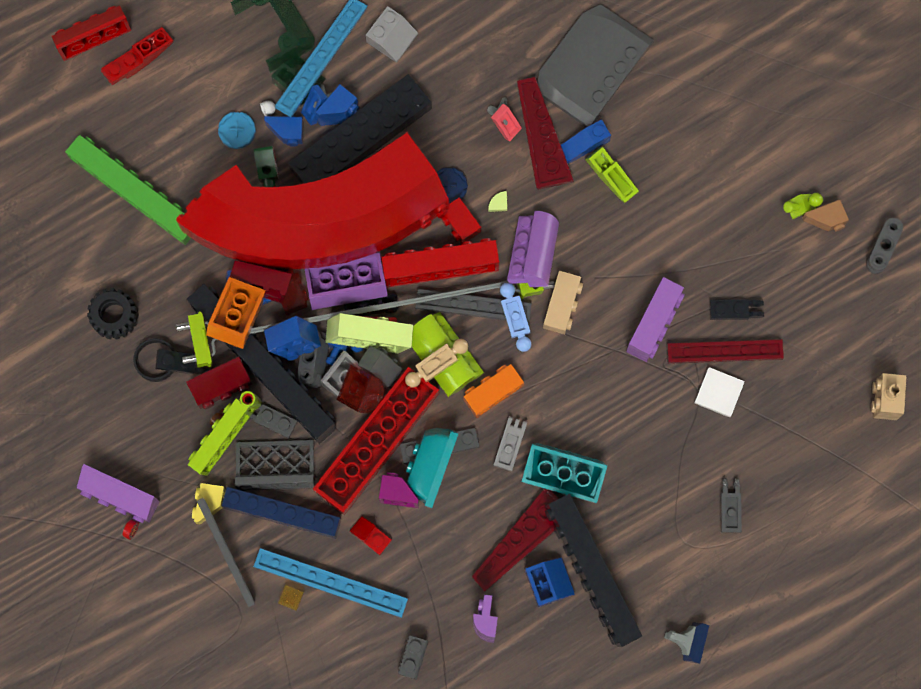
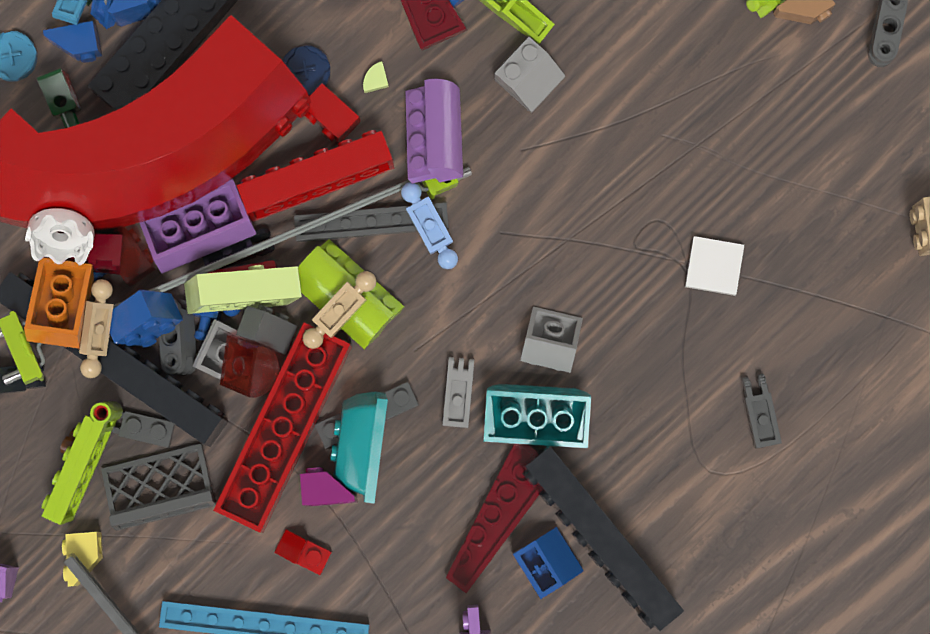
camera: 10 degrees left, 5 degrees up
(219, 383) = (60, 398): dark red slope -> none
(245, 272) = (47, 242): none -> white plate
(258, 337) = (96, 328): none -> tan plate
(267, 108) = (45, 18): white hinge -> none
(281, 512) = (179, 549): dark blue brick -> none
(493, 390) = (420, 327): orange brick -> none
(563, 302) = (487, 193): tan brick -> none
(587, 419) = (551, 339): none -> light grey slope
(612, 224) = (529, 75): none -> light grey slope
(653, 323) = (611, 192): medium lavender brick -> none
(690, 641) = (746, 599): piece -> none
(725, 351) = (710, 211): dark red plate -> none
(734, 309) = (710, 153): black hinge -> none

